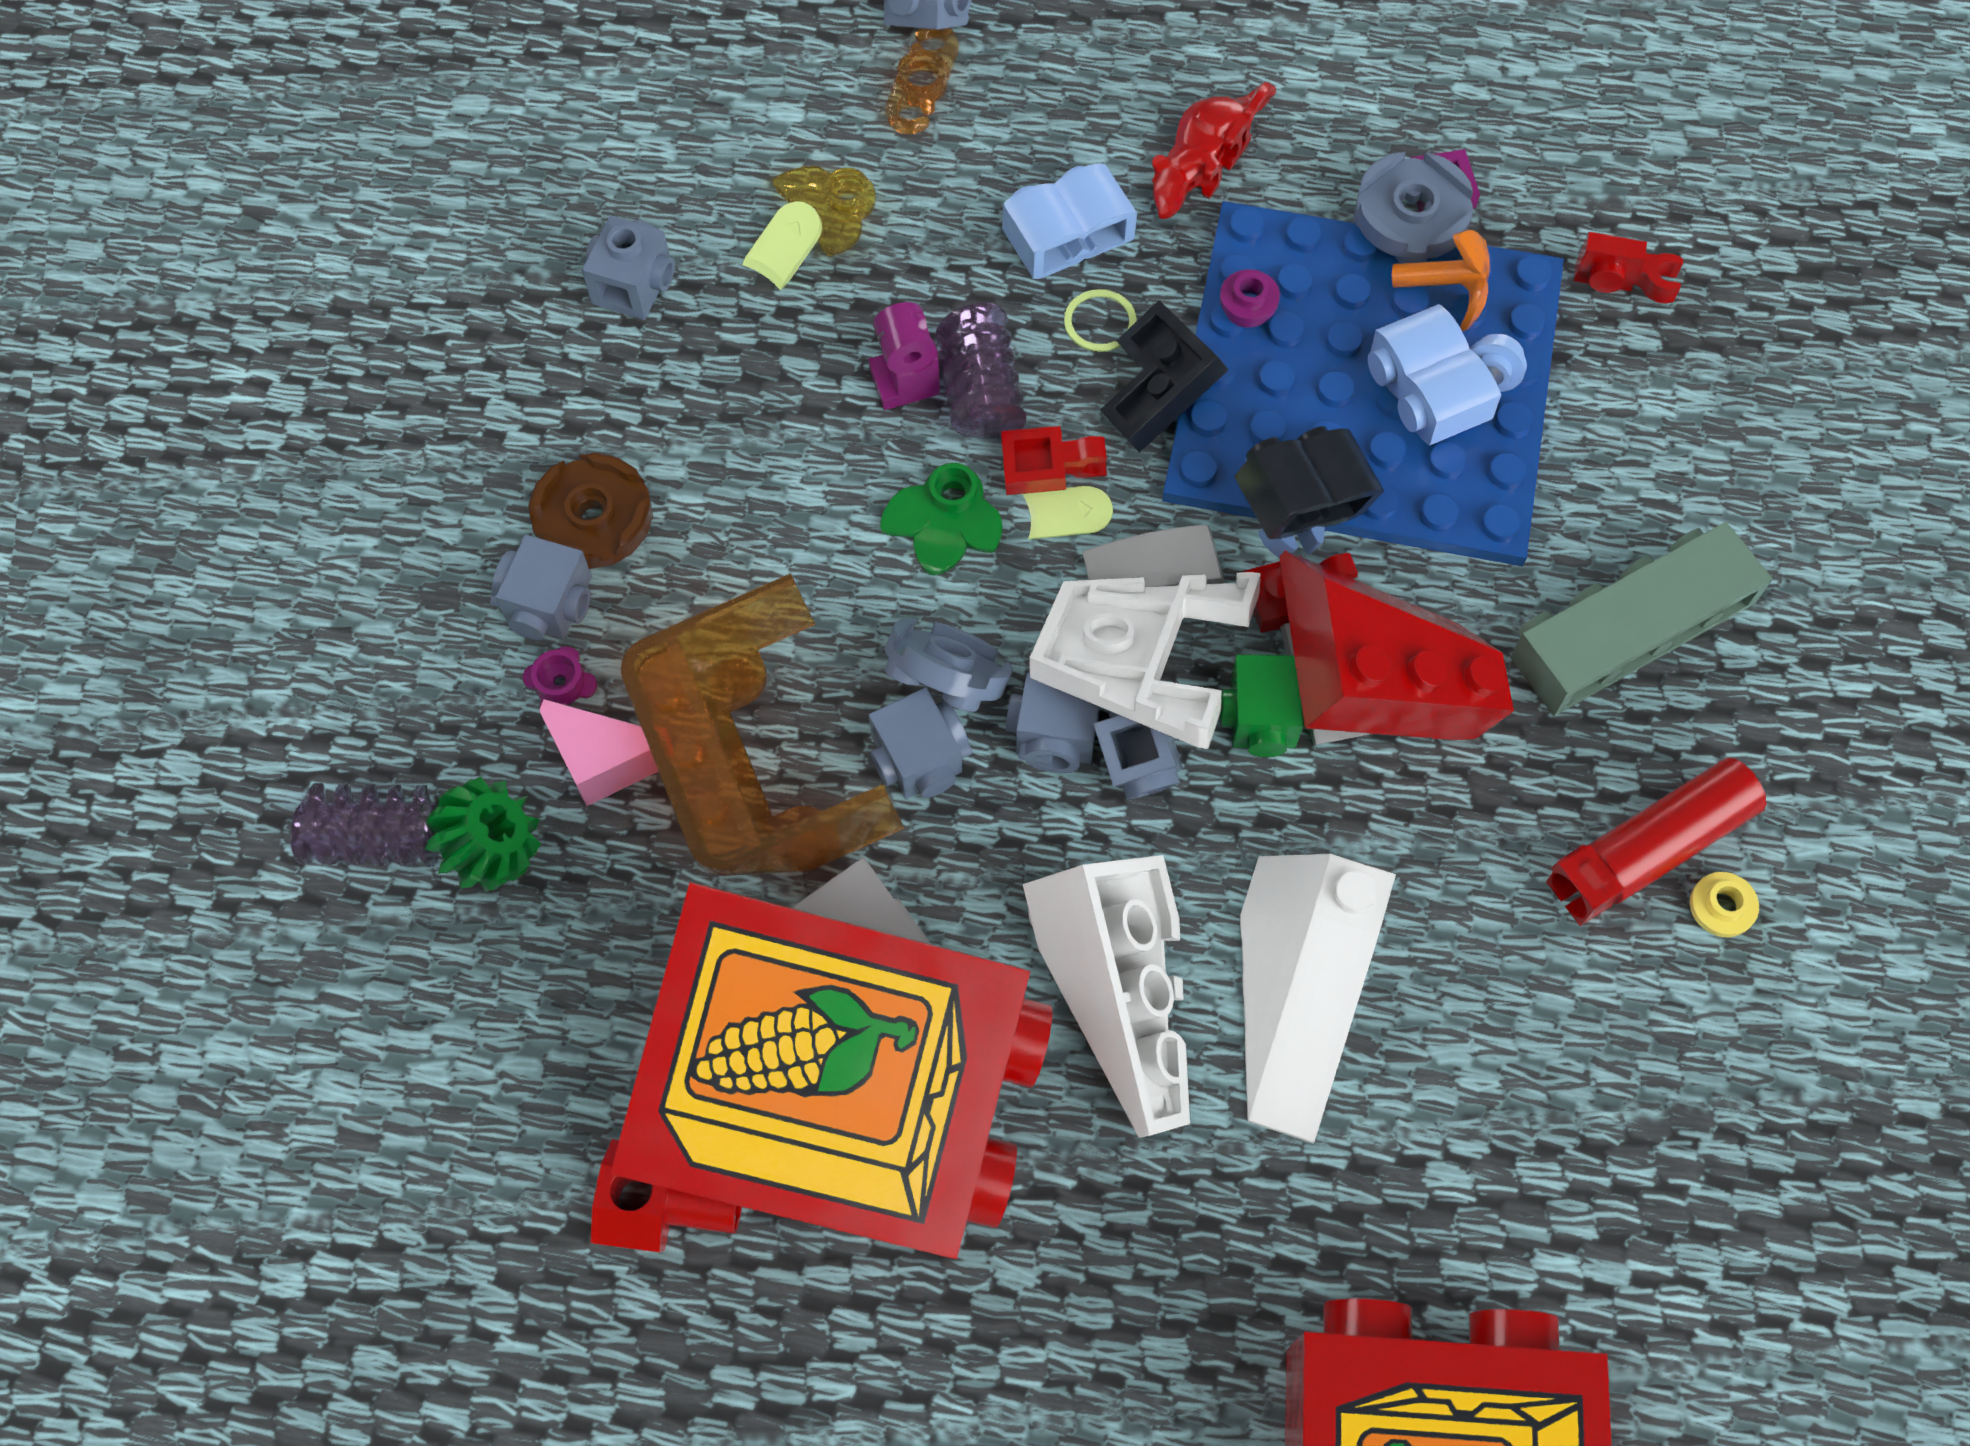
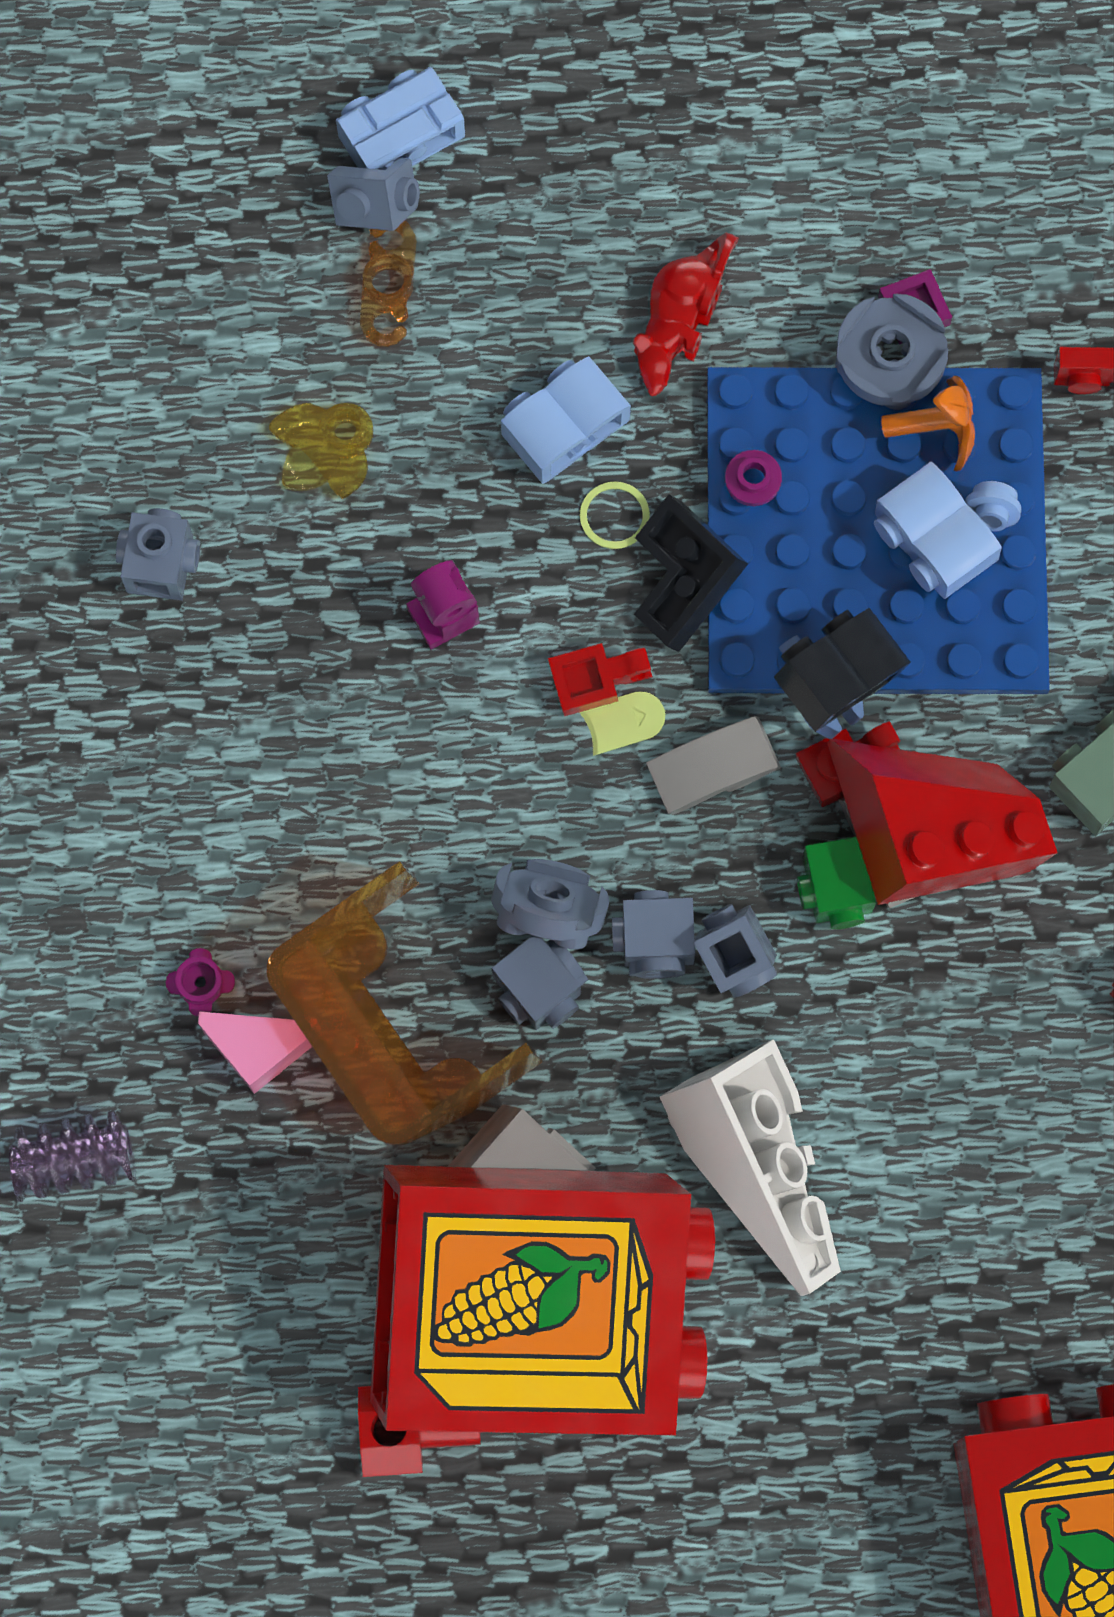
camera: 10 degrees left, 10 degrees up
(482, 834) = (177, 1145): green gear -> none
(542, 588) = (162, 900): sand blue brick -> none
(590, 483) = (181, 781): reddish brown plate -> none
(785, 242) = (297, 493): yellowish green piece -> none
(941, 525) = (509, 760): green plate -> none
(980, 371) = (512, 602): clear purple piece -> none
(1115, 637) = (694, 858): white wing -> none
(1304, 964) = (913, 1116): white wedge -> none

